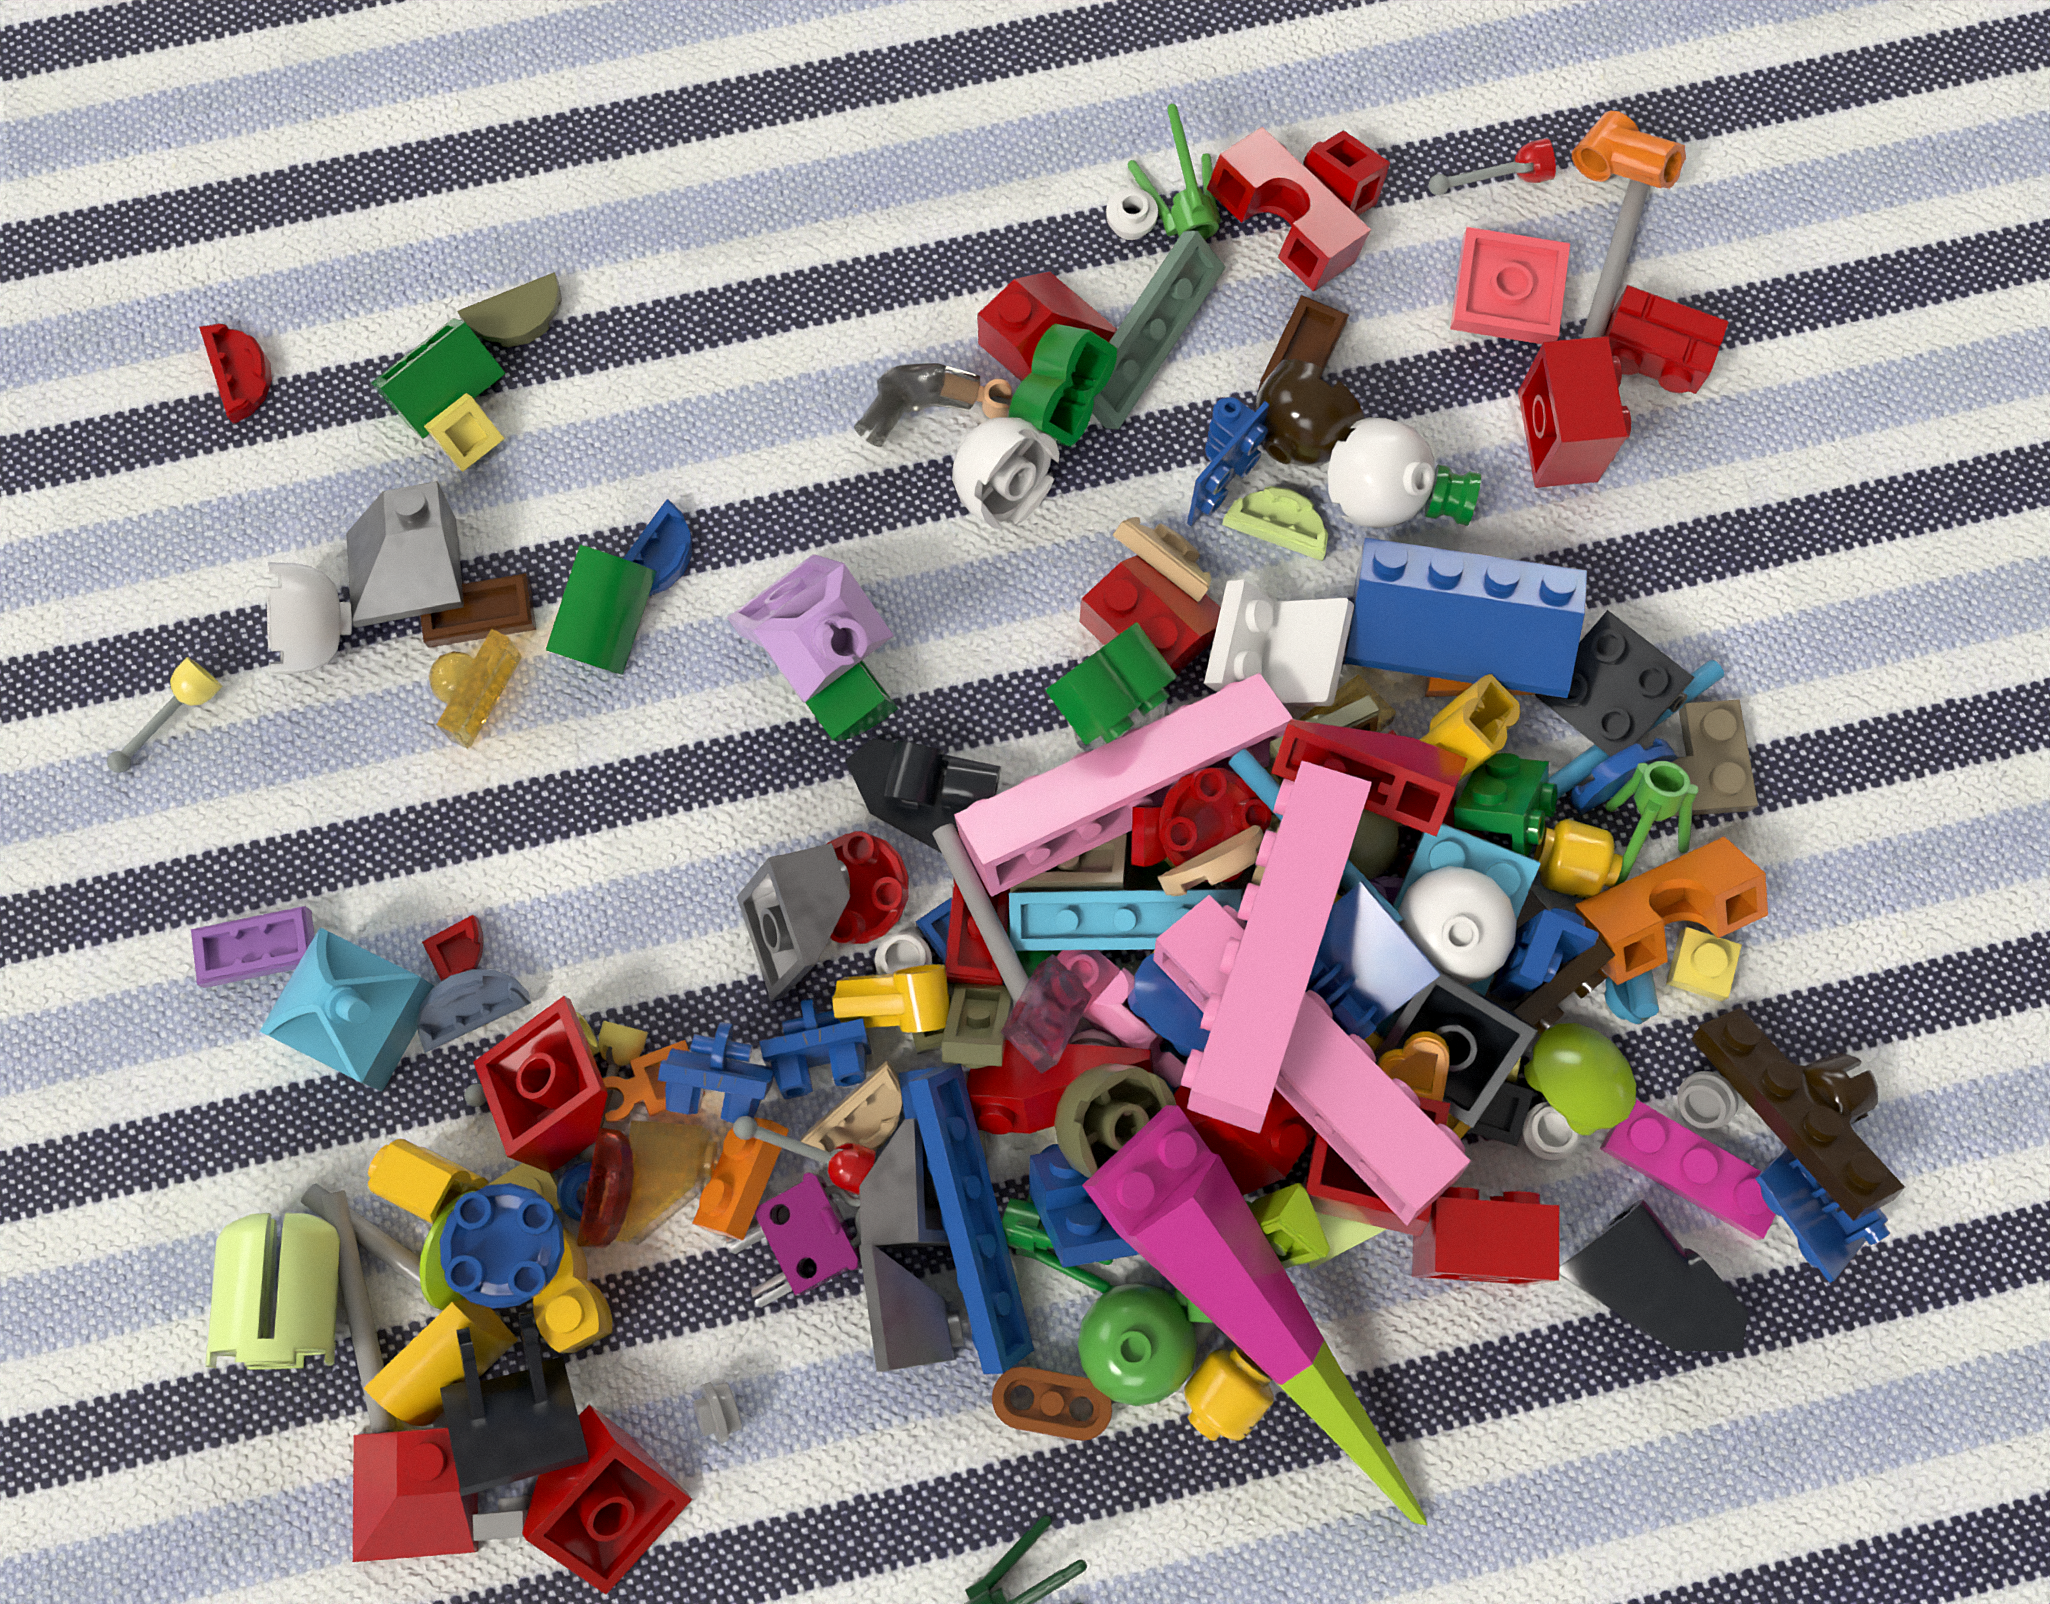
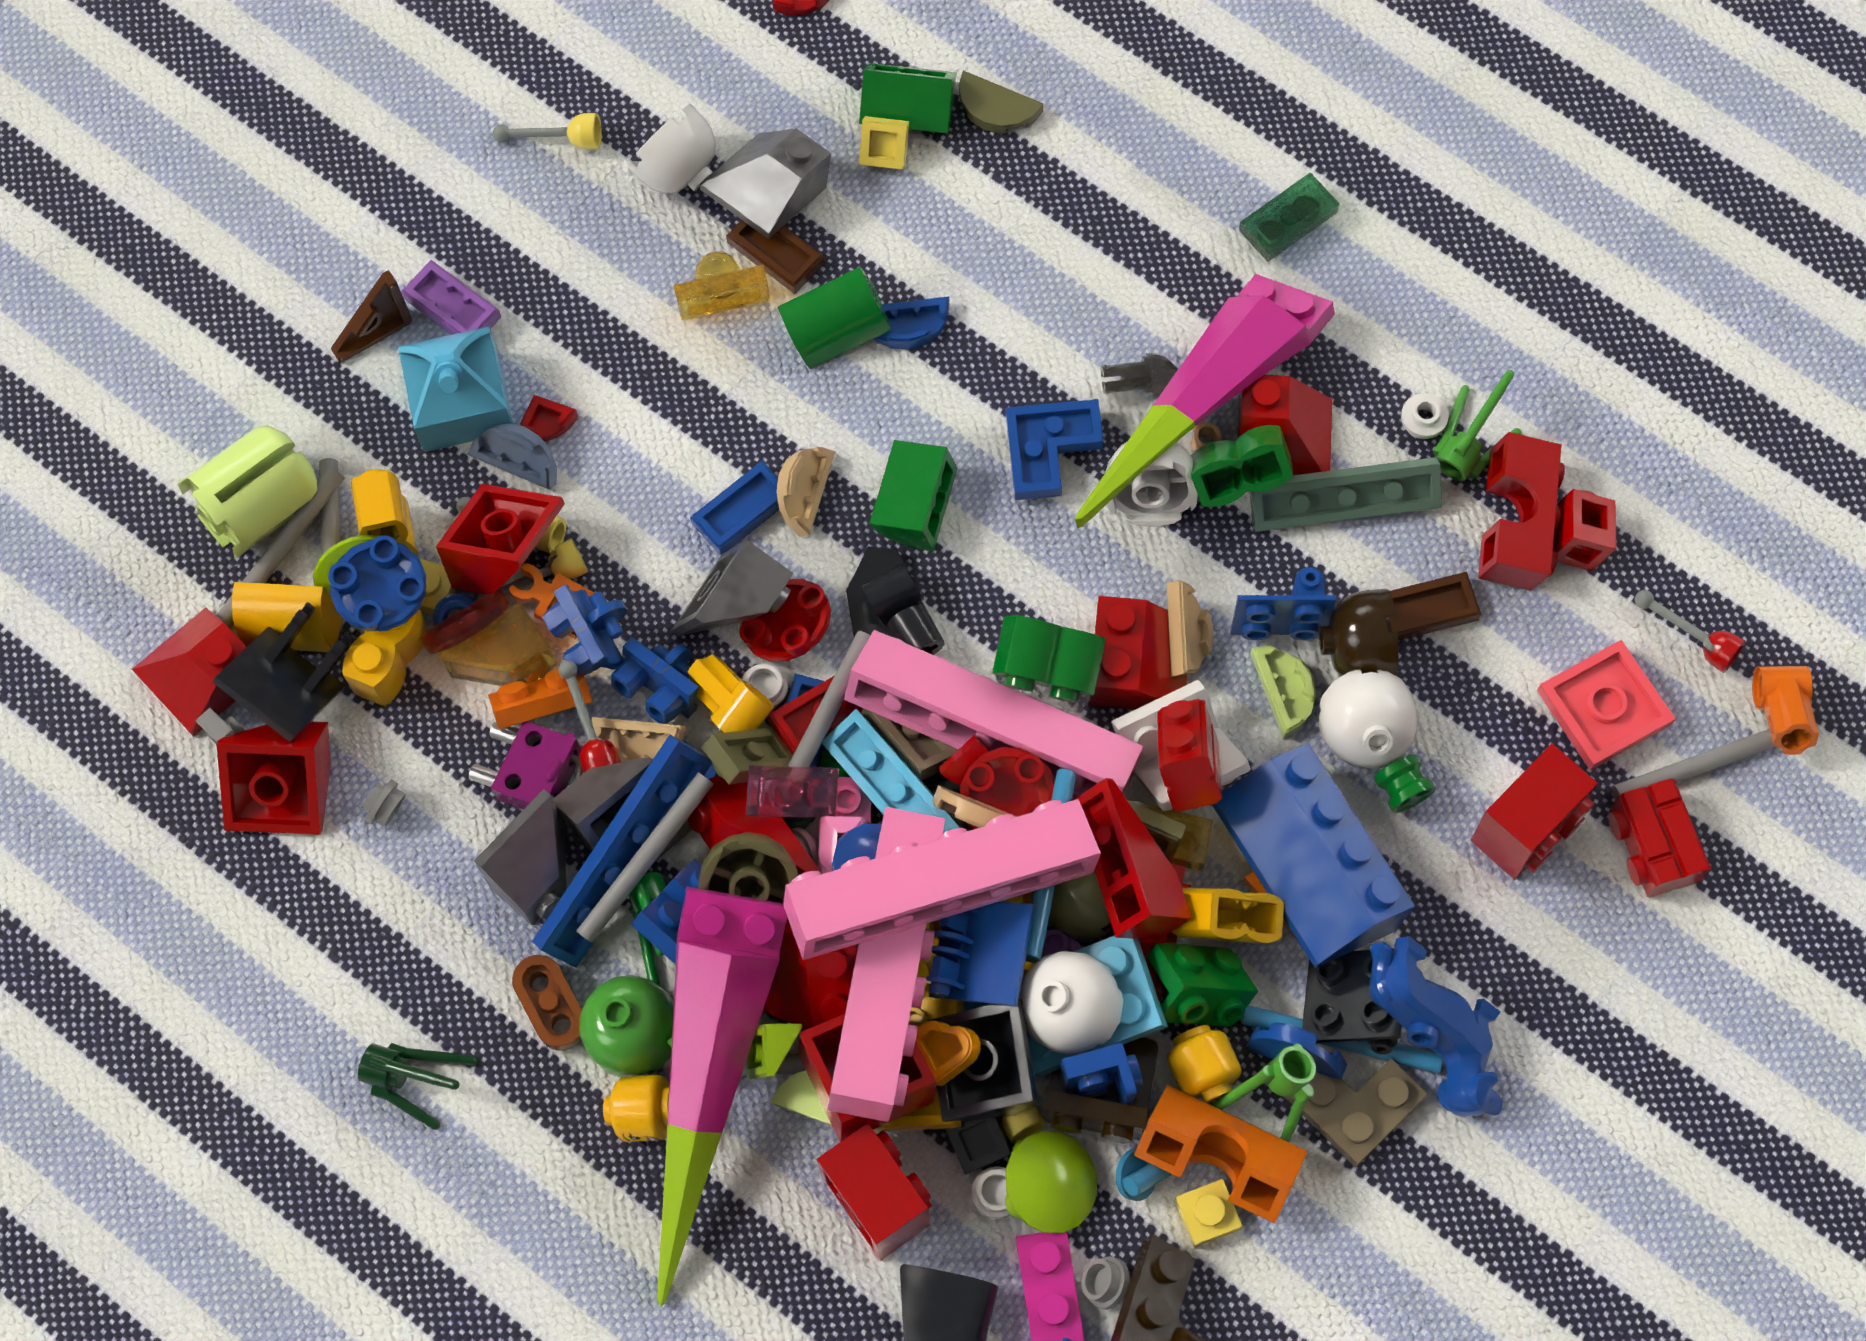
camera: 55 degrees right, 5 degrees down
(204, 1028) = (375, 319): none -> reddish brown tile
(707, 842) = (738, 509): none -> blue tile
(738, 771) = (802, 486): none -> tan tile
(813, 624) = (931, 448): lavender plate -> none
(852, 166) = (1289, 217): none -> clear green plate
(873, 533) = (1041, 433): none -> blue plate
(948, 293) = (1239, 346): none -> dark pink plate
(996, 1201) = (645, 857): none -> light grey bar
(1307, 640) = (1188, 755): none -> red brick
(1704, 636) = (1438, 1021): none -> blue animal

